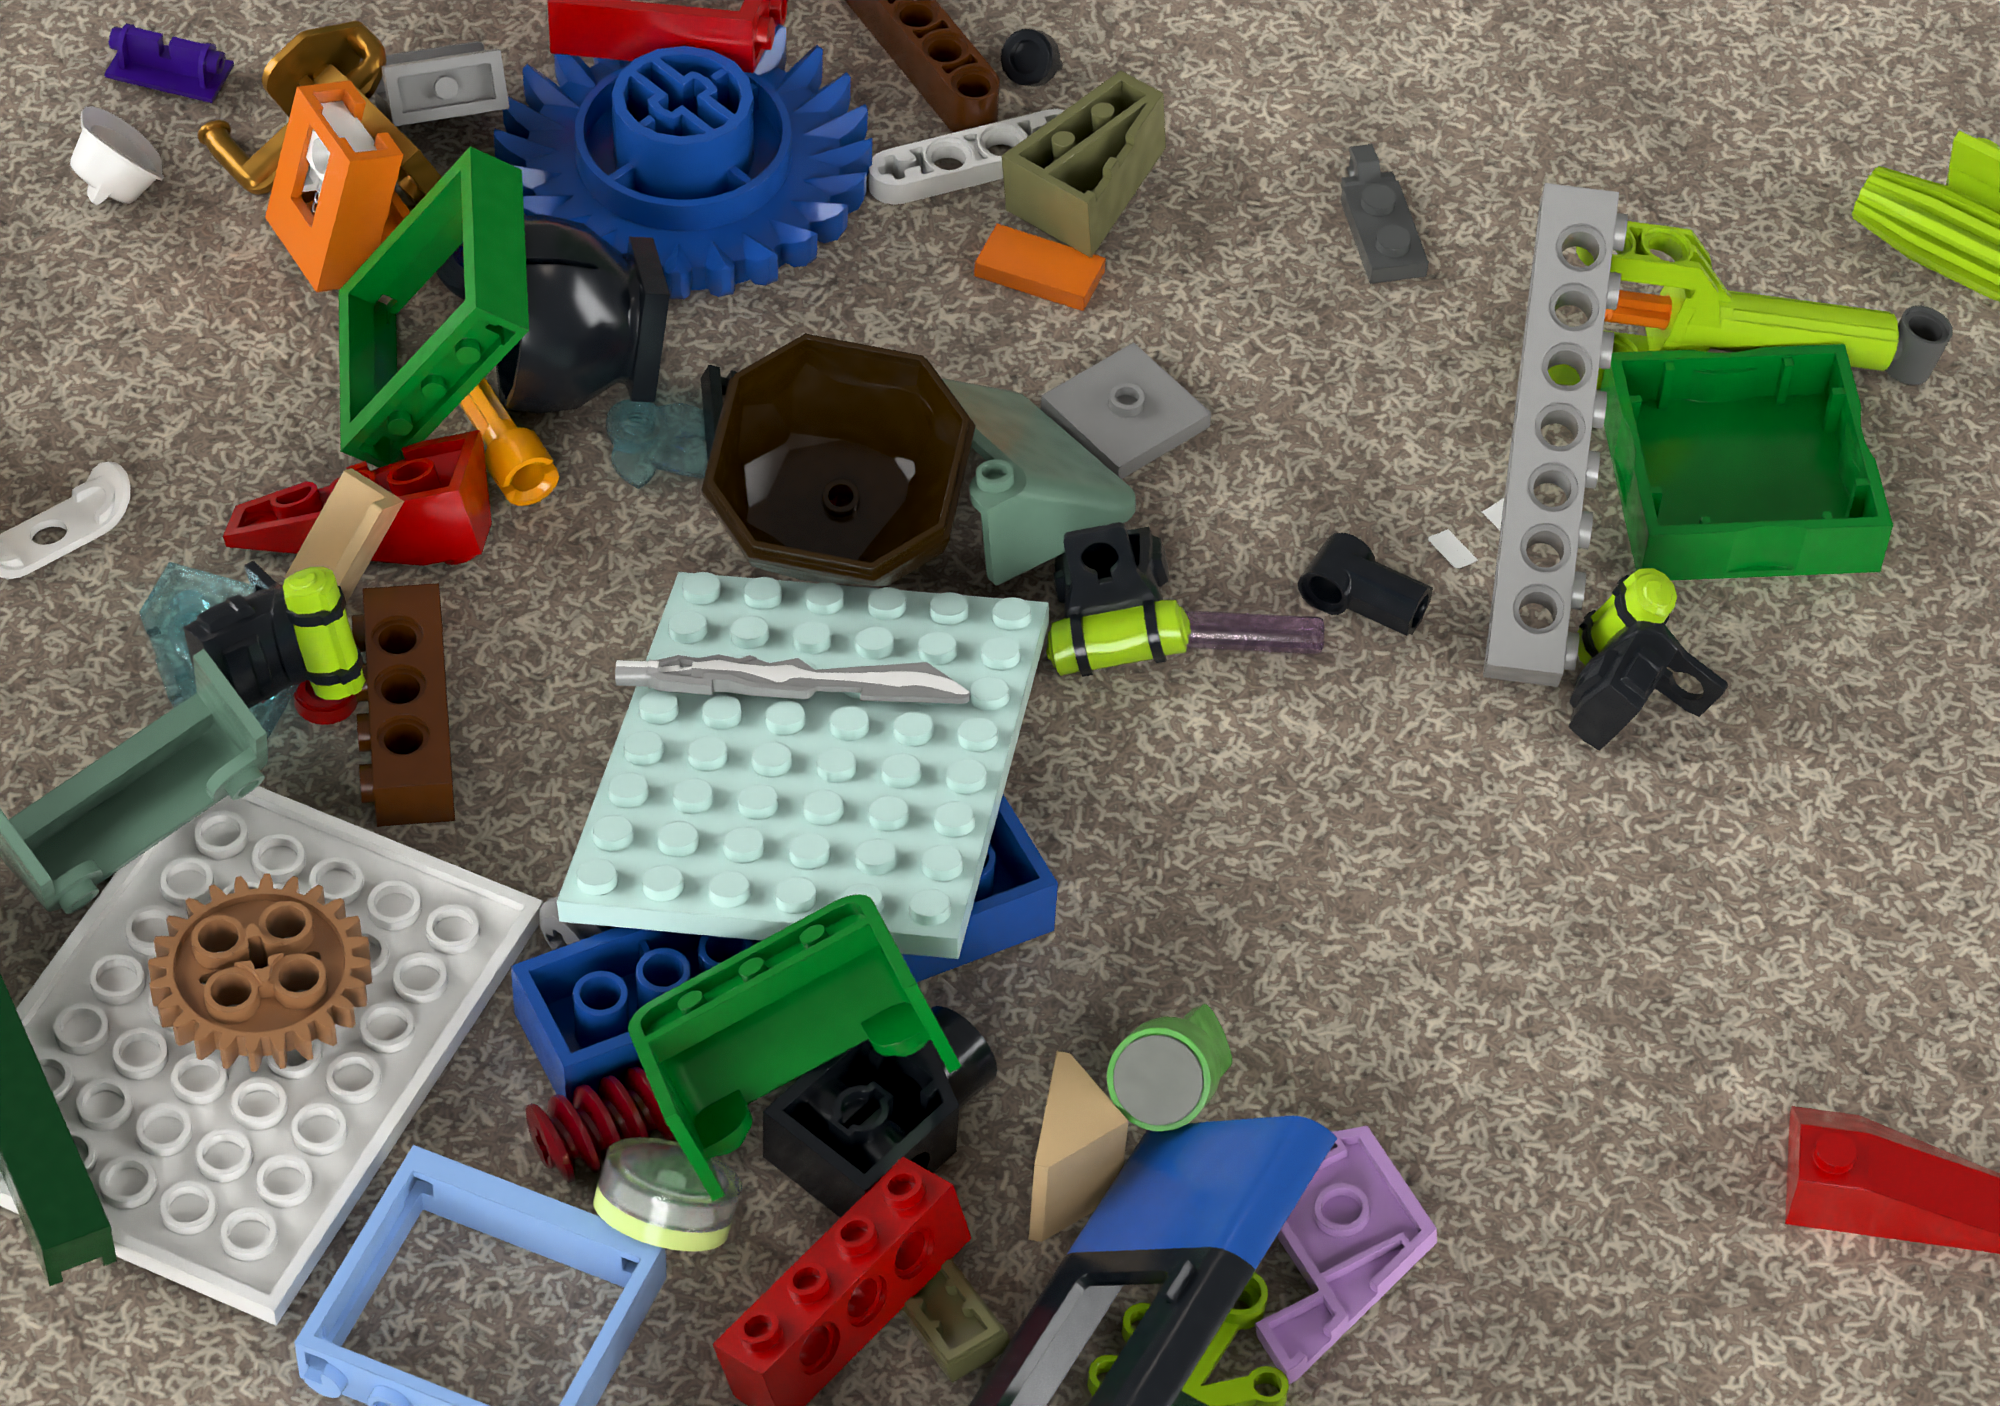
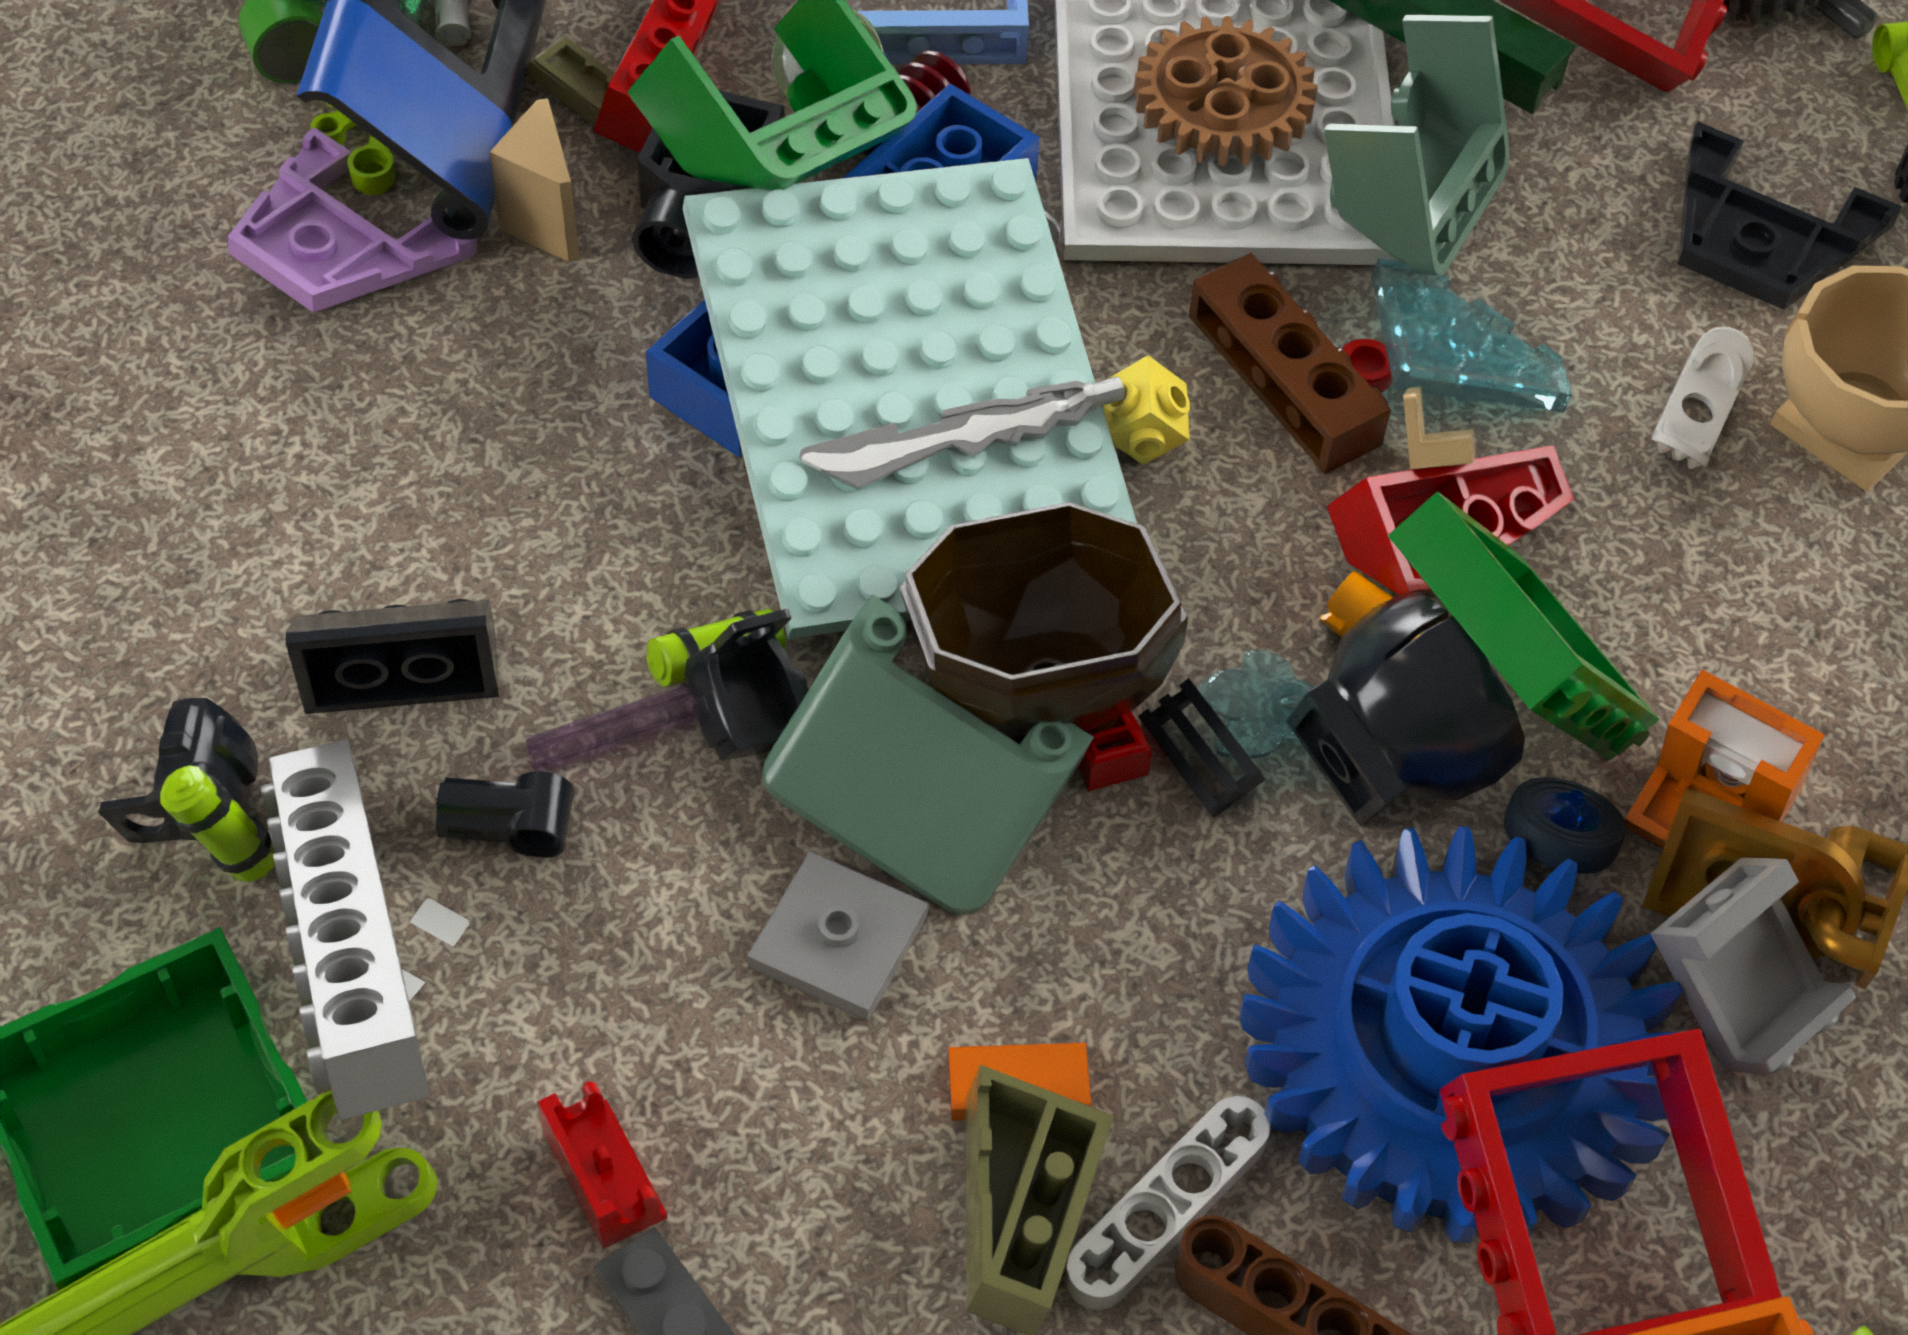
camera: 155 degrees right, 5 degrees up
(282, 637) = (1397, 287): black piece -> none
(581, 695) = (1152, 414): none -> light yellow brick
(1169, 1069) = (477, 217): piece -> none
(1396, 317) = (600, 1166): none -> red hinge
(1415, 726) = (394, 656): none -> black slope

